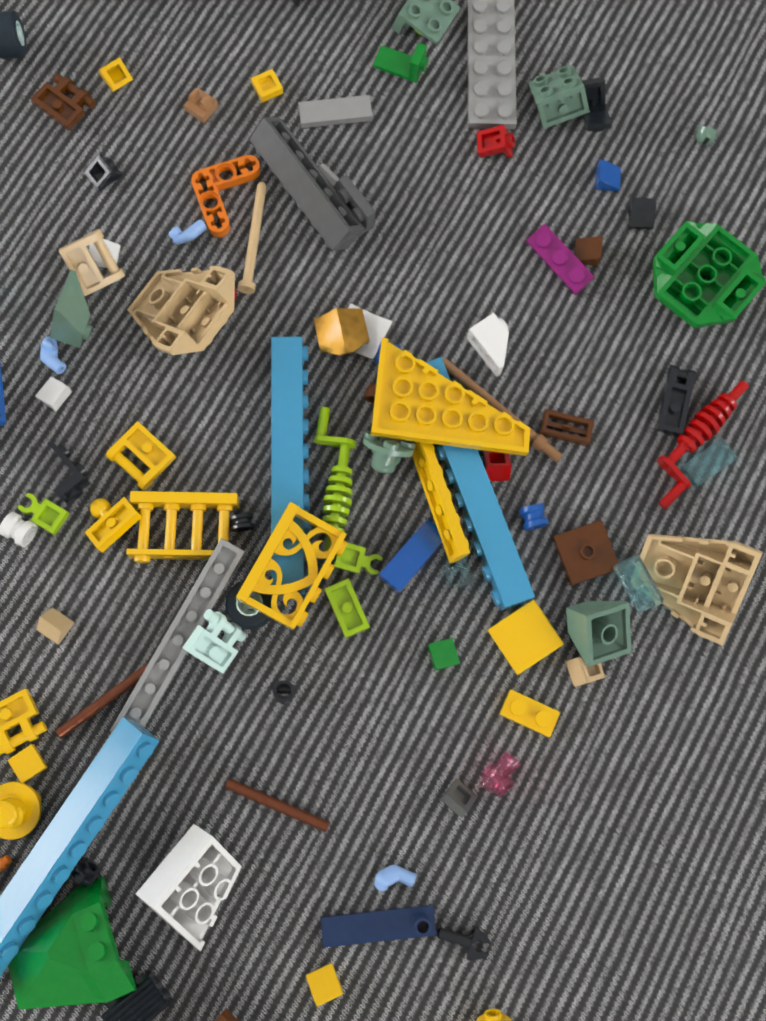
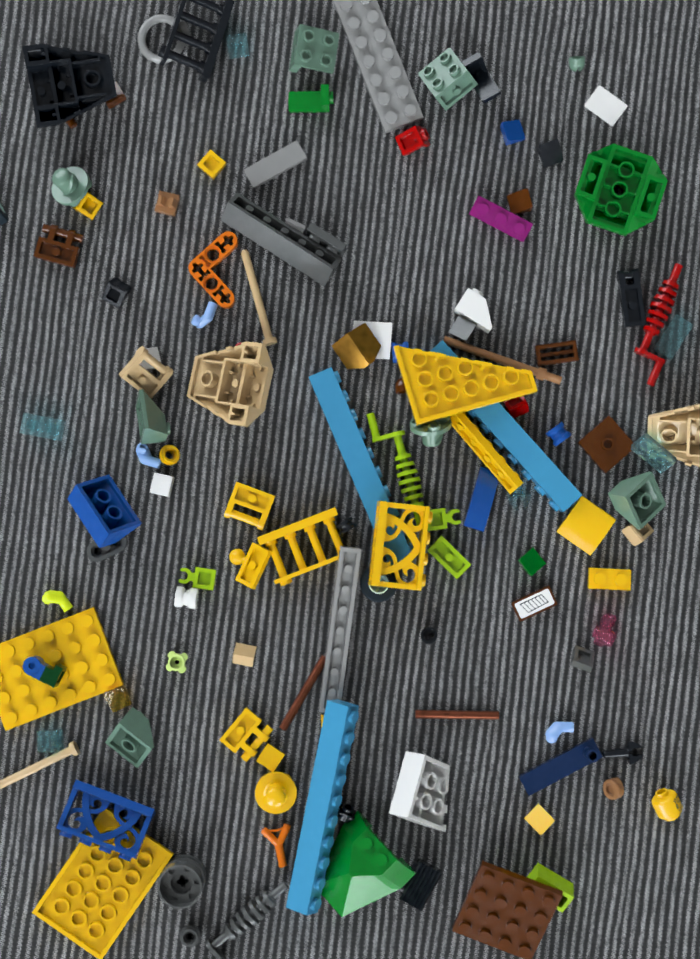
camera: 15 degrees left, 10 degrees up
(74, 485) = (211, 551): black bracket -> none
(80, 357) = (173, 450): none -> yellow plate
(104, 42) = (70, 185): none -> sand green plate
(211, 649) = (364, 626): light aqua plate -> none
(426, 705) = (534, 603): none -> tile
(434, 983) = (613, 788): none -> medium nougat tile
(470, 359) = (462, 328): none -> slope
(721, 191) = (605, 105): none -> white sticker

